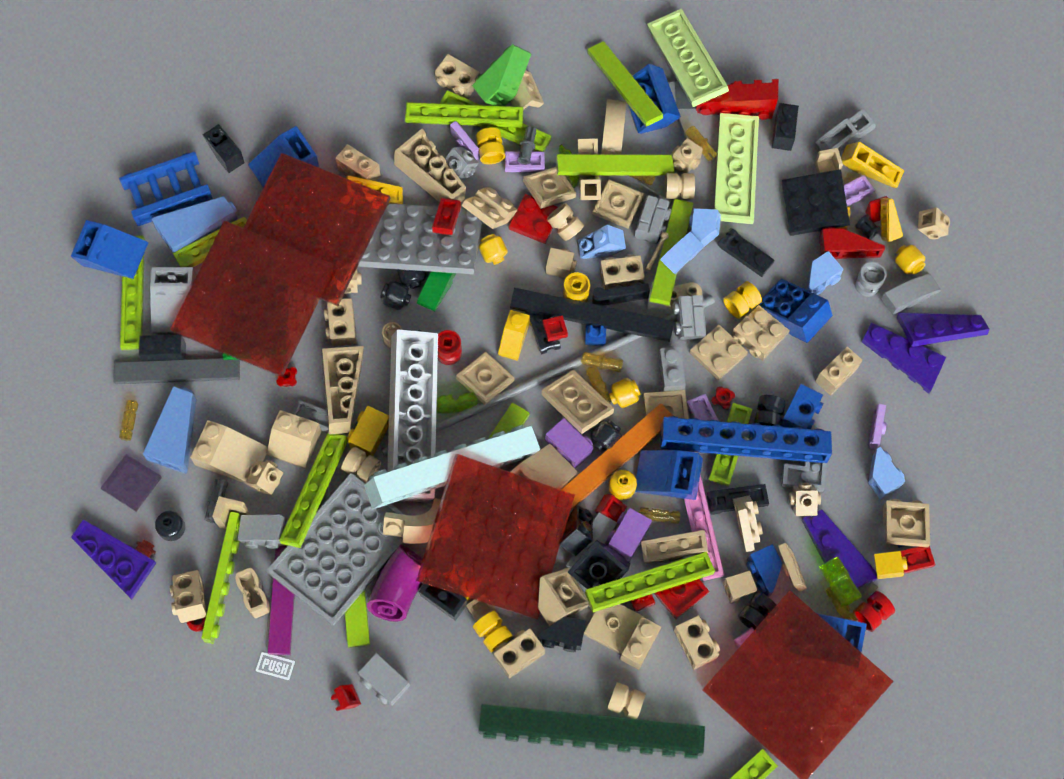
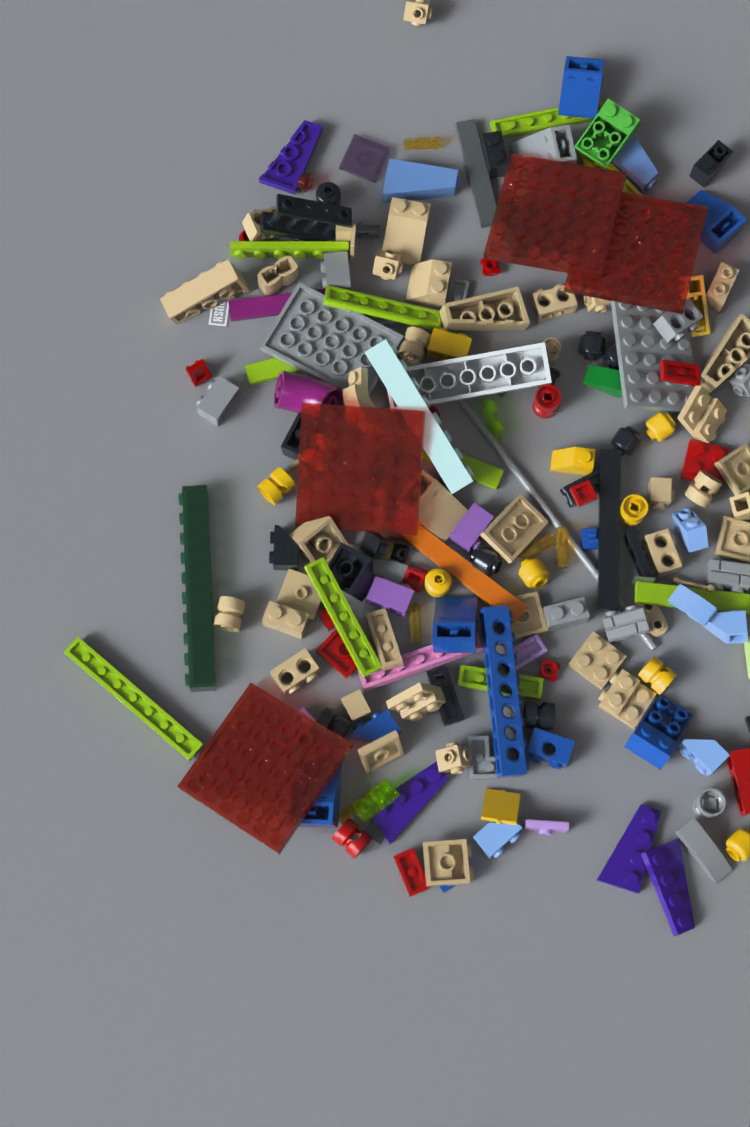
camera: 80 degrees right, 5 degrees up
(144, 214) = (649, 139): blue fence -> none
(173, 231) = (608, 133): none -> bright green slope
(200, 549) = (305, 219): none -> black fence
(254, 677) = (204, 291): none -> tan wedge
(397, 212) = (674, 325): none -> light grey brick
(485, 378) = (523, 441): tan plate -> none
(502, 282) = (626, 440): none -> black head
(522, 656) = (256, 516): tan brick -> none
(746, 253) = (713, 676): black plate -> none
(838, 371) = (599, 781): tan brick -> none
(855, 464) = (500, 806): none -> yellow piece
(890, 564) = (399, 846): yellow brick -> none

